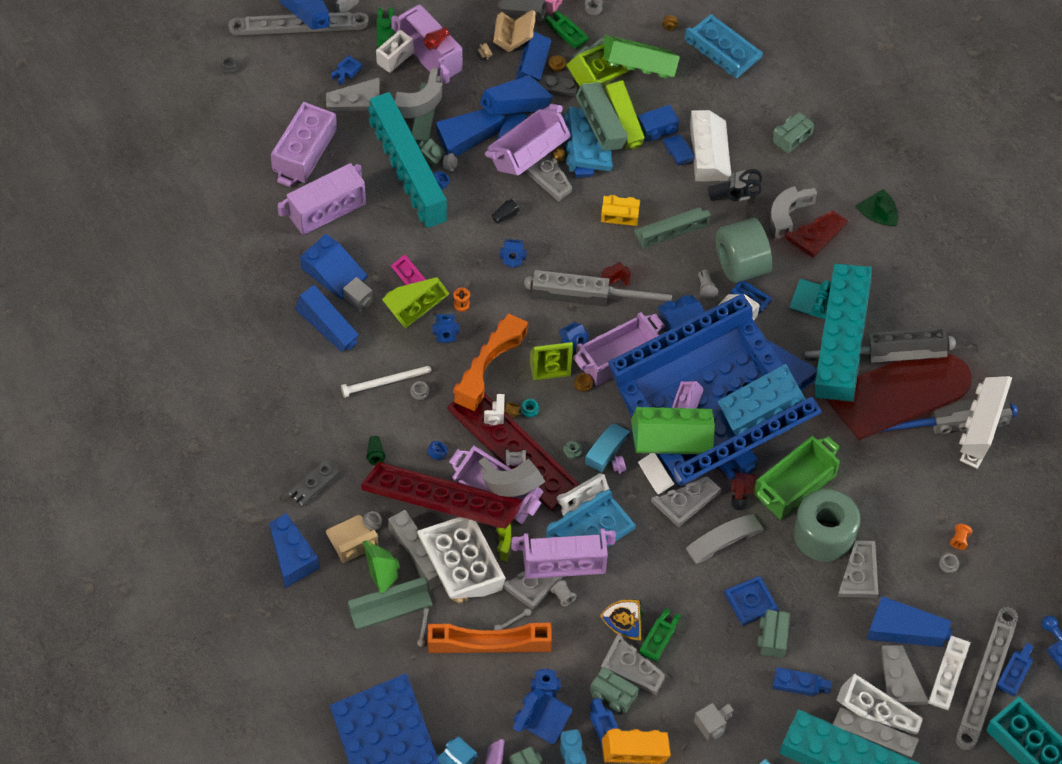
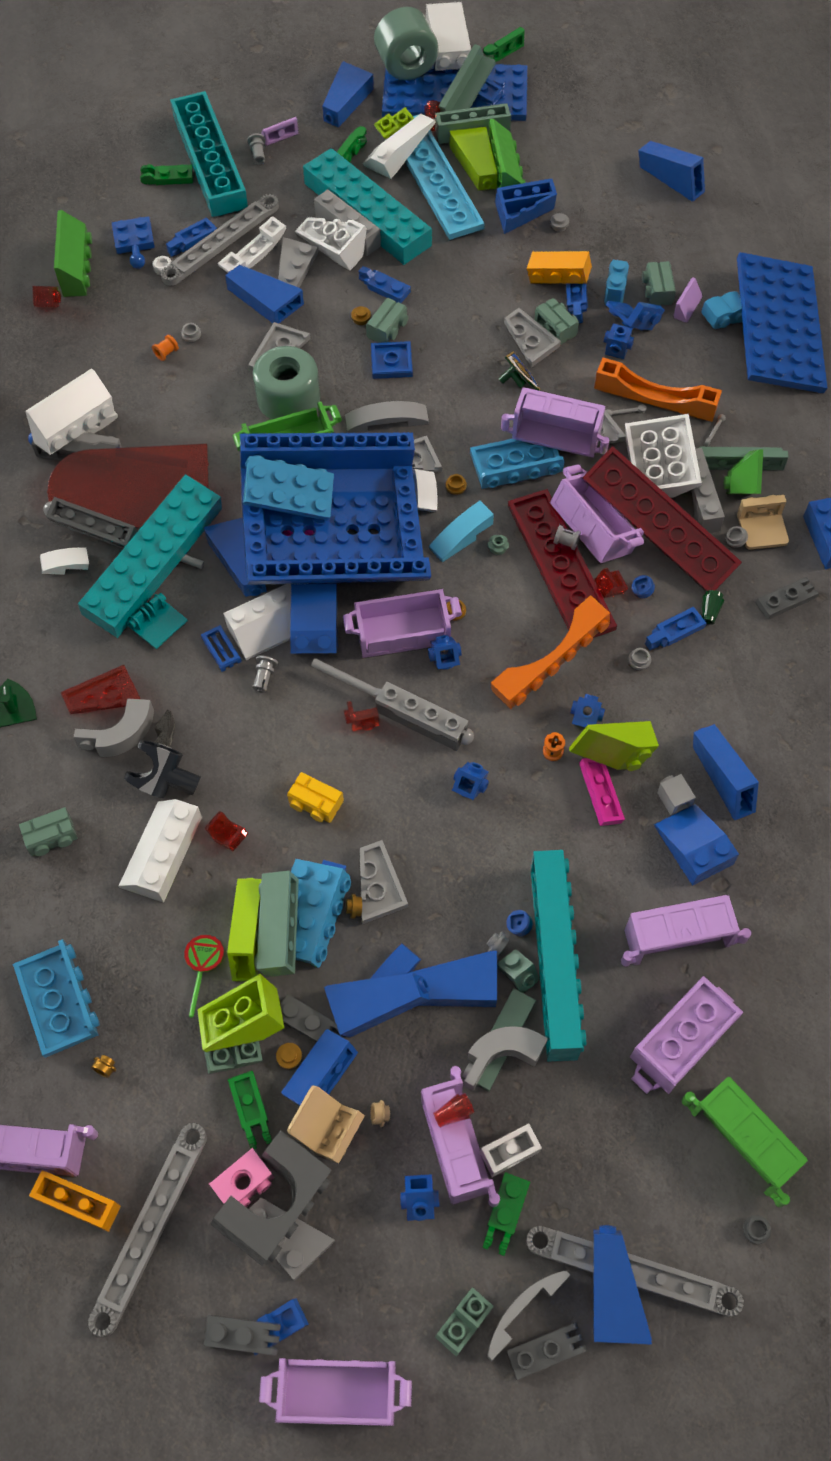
camera: 155 degrees left, 5 degrees up
(249, 99) = (751, 1135): none -> bright green container
(346, 68) = (585, 1155): blue plate -> none
(346, 390) = (676, 683): white bar -> none
(353, 97) = (587, 1102): light grey wing -> none
(398, 422) = (675, 629): none -> blue hinge
(446, 12) = (419, 1197): none -> blue brick
(465, 438) = (610, 583): none -> clear red bracket
(495, 416) = (567, 588): white bracket -> none
(505, 211) = (454, 846): black cone -> none
(511, 482) = (594, 484): light grey arch -> none
(512, 409) = (541, 603): pearl gold plate -> none
(529, 141) = (389, 920): lavender container -> none
(529, 403) = (528, 596): teal plate -> none
(551, 361) = (484, 626): lime slope -> none
(582, 493) = (510, 491): white plate -> none
(618, 464) = (457, 511): lavender plate -> none
(632, 491) = (456, 484): none -> pearl gold plate
(640, 56) = (177, 1008): bright green slope -> none
(643, 100) = (202, 955): none -> piece
(658, 123) = (206, 905): blue brick -> none
(659, 636) = (491, 353): green hinge -> none
(670, 170) = (225, 831): none -> clear red bracket
(672, 227) = (263, 759): sand green panel -> none
(673, 430) = (394, 497): bright green slope -> none
(678, 149) = (200, 861): blue slope -> none
(688, 395) = (361, 535): lavender slope -> none
(711, 721) = (480, 274): light grey brick -> none
(743, 250) = (205, 674): sand green piece -> none
(804, 637) = (361, 315): none -> pearl gold plate
(914, 316) = (59, 560): none -> white slope
(1024, 631) = (161, 262): none -> white tile

